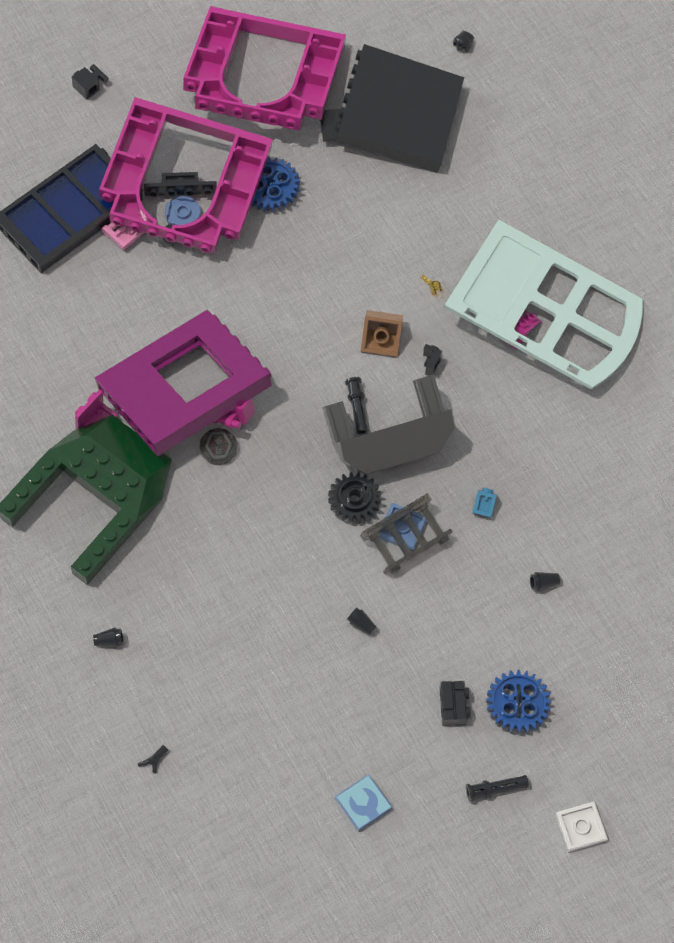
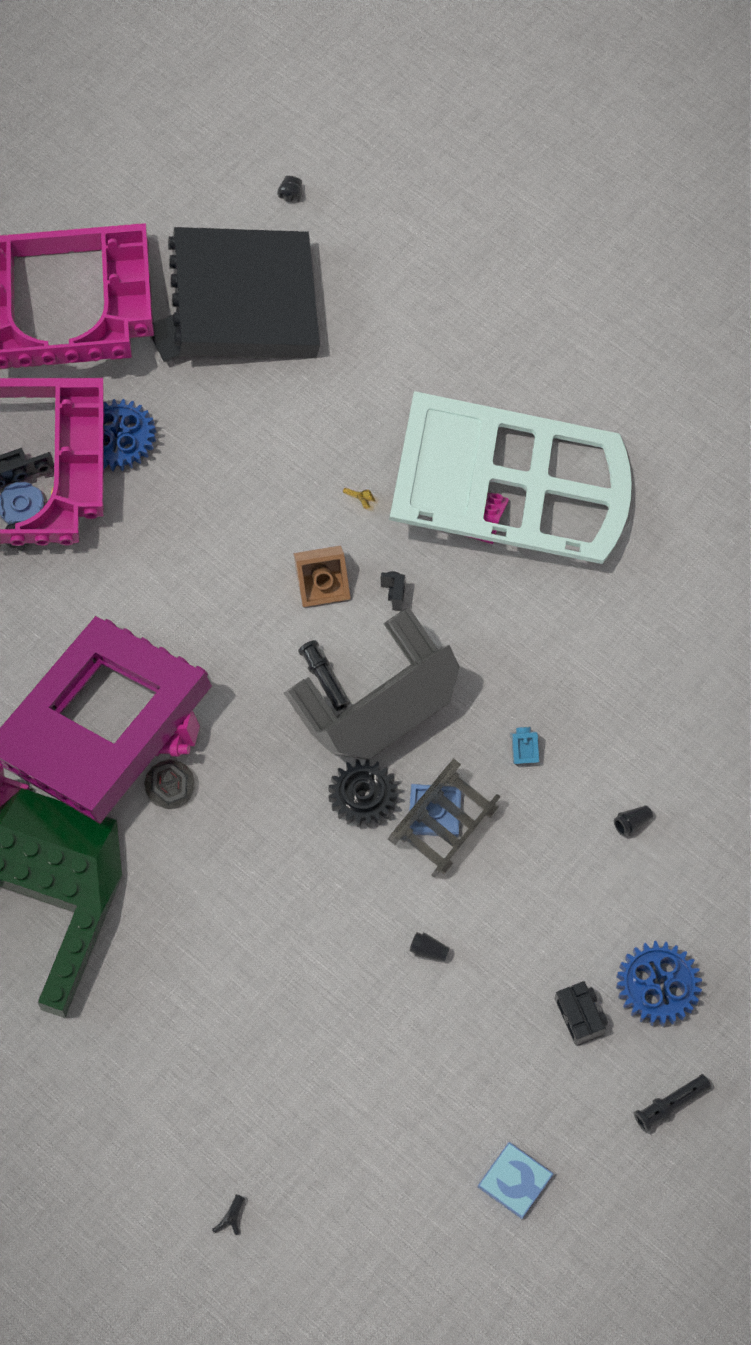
camera: 15 degrees left, 0 degrees up
(110, 637) = (118, 1078): black cone -> none

